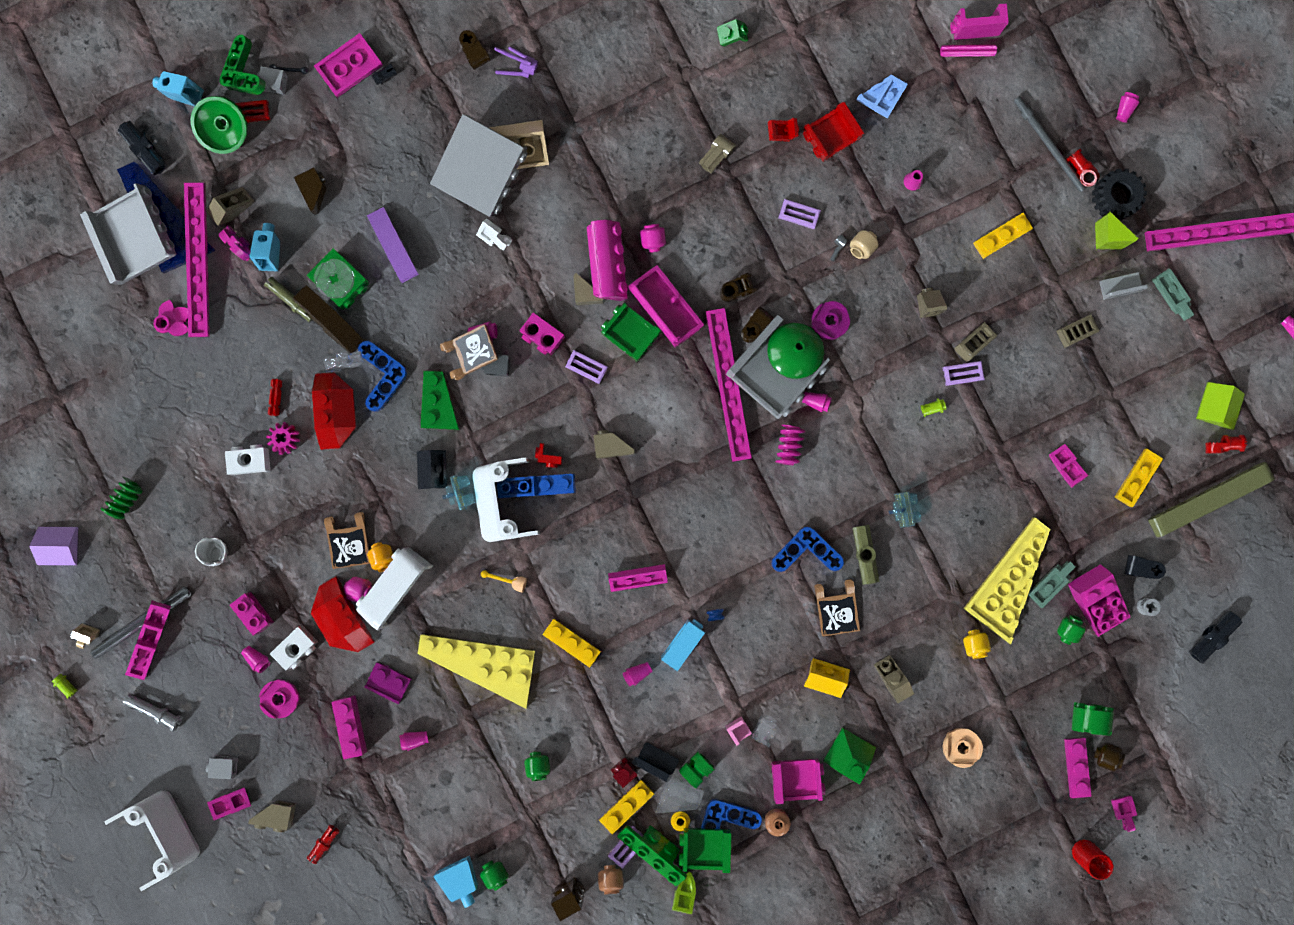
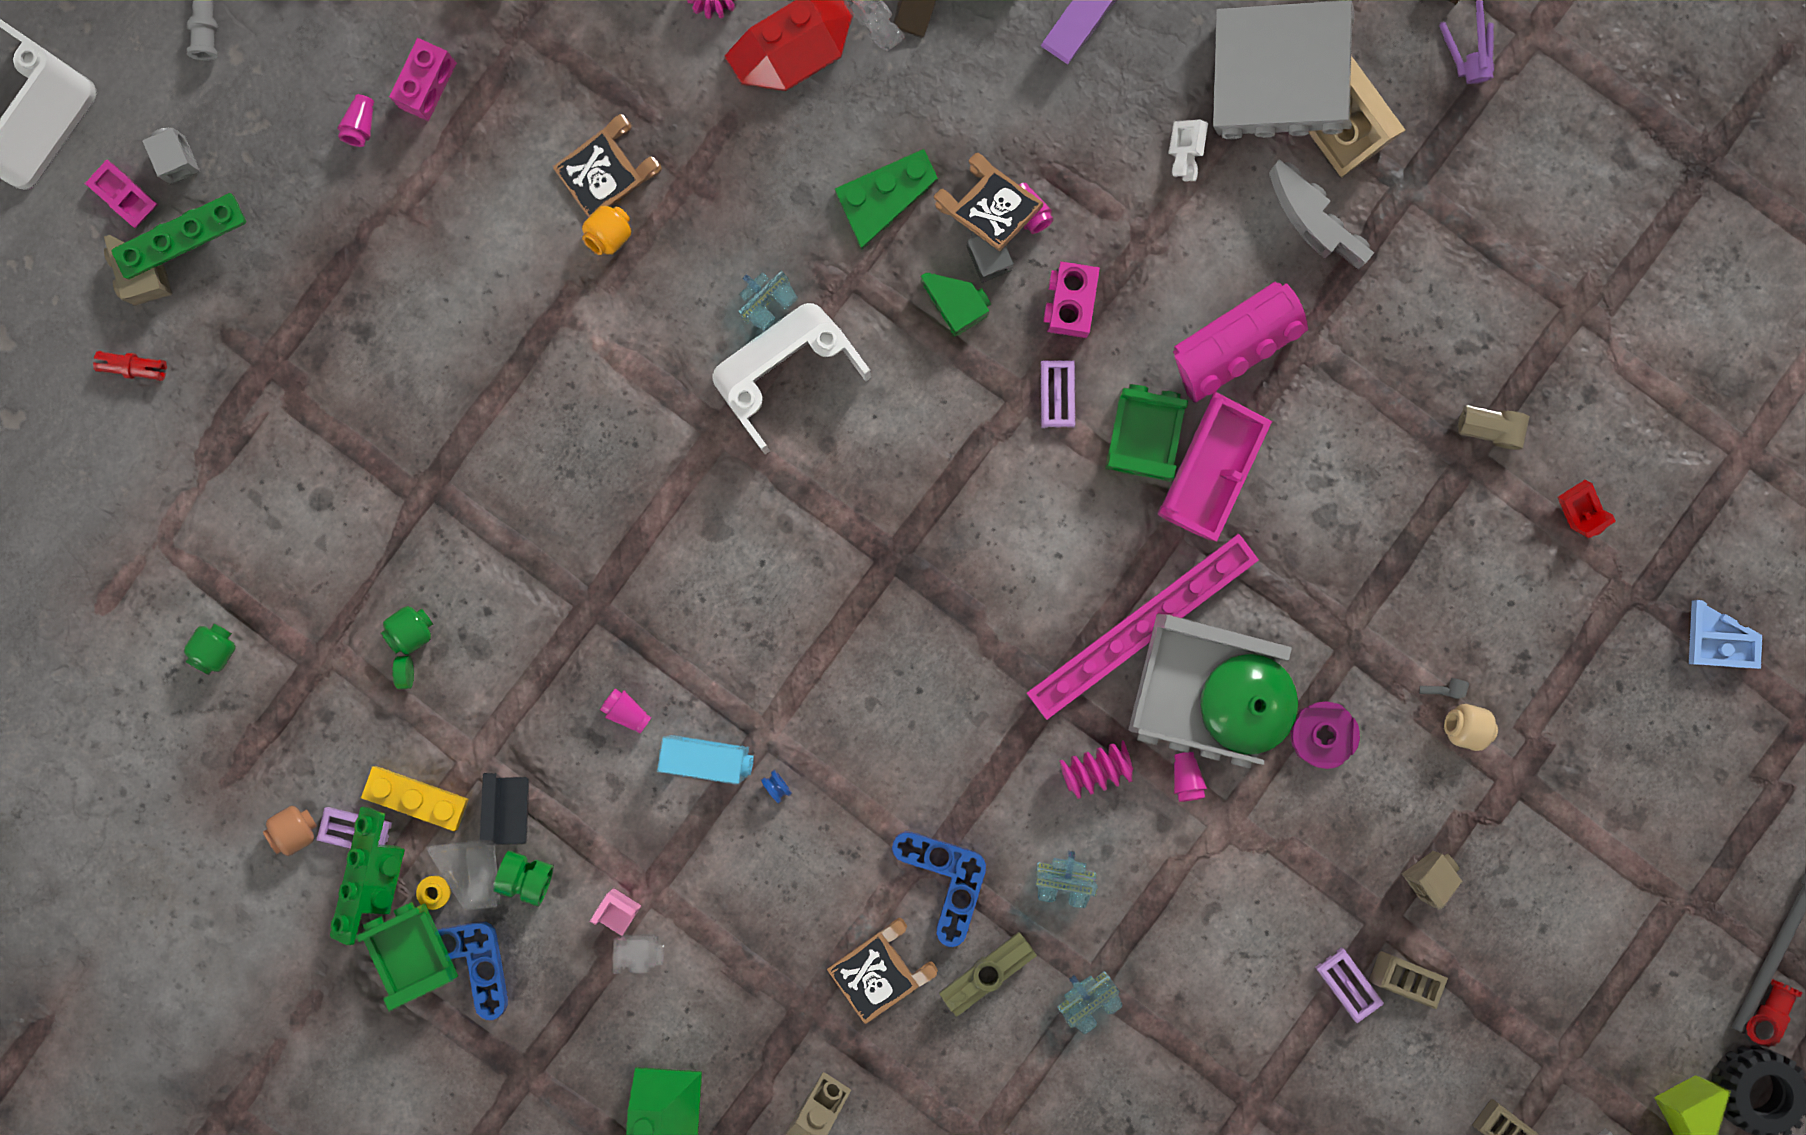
camera: 65 degrees right, 0 degrees up
(268, 783) = (178, 236): none -> green bracket
(283, 652) = (388, 157): white brick -> none
(290, 699) = (306, 170): dark pink plate -> none
(339, 618) = (483, 215): red wedge -> none
(349, 727) = (324, 314): dark pink brick -> none
(356, 588) = (539, 222): dark pink head -> none
(388, 370) = (896, 96): blue beam -> none
(388, 682) = (422, 338): magenta plate -> none
(391, 587) = (567, 268): white windscreen -> none
(412, 740) = (353, 420): dark pink cone -> none
(431, 469) = (780, 238): black panel -> none
(458, 881) = (174, 598): medium azure torso -> none
(494, 667) = (525, 485): light yellow wing -> none
(512, 394) = (956, 301): none -> green slope
(518, 583) = (671, 459): hinge -> none
(536, 486) = (835, 410): blue slope -> none
(550, 461) = (884, 413): red bracket -> none
(555, 191) = (1304, 208): none -> light grey slope
(558, 779) = (403, 672): none -> green tile
(568, 898) = (226, 780): dark brown arch -> none
(571, 643) = (622, 587): yellow plate -> none
(584, 292) = (1170, 331): dark tan slope -> none
(610, 445) = (954, 491): dark tan slope -> none
(624, 772) = (464, 768): dark red brick -> none
(637, 578) = (772, 637): dark pink plate -> none
(653, 237) = (1311, 394): dark pink head -> none
(685, 895) = (323, 957): lime plate -> none
(732, 32) = (1697, 354): bracket -> none
(741, 286) = (1305, 569): dark brown piece -> none
(757, 323) = (1261, 623): dark brown piece -> none
(779, 816) = (515, 1046): nougat head -> none
(797, 780) = (585, 1043): dark pink panel -> none
(799, 214) = (1465, 602): lavender tile -> none
(827, 678) = (766, 1010): yellow panel -> none
(833, 132) = (1622, 590): red panel -> none
(836, 488) = (1066, 876): none -> clear light blue hips
(912, 183) = (1613, 754): dark pink cone -> none
(933, 407) = (1271, 965): lime pin -> none
(1003, 235) = (1599, 939): yellow plate -> none

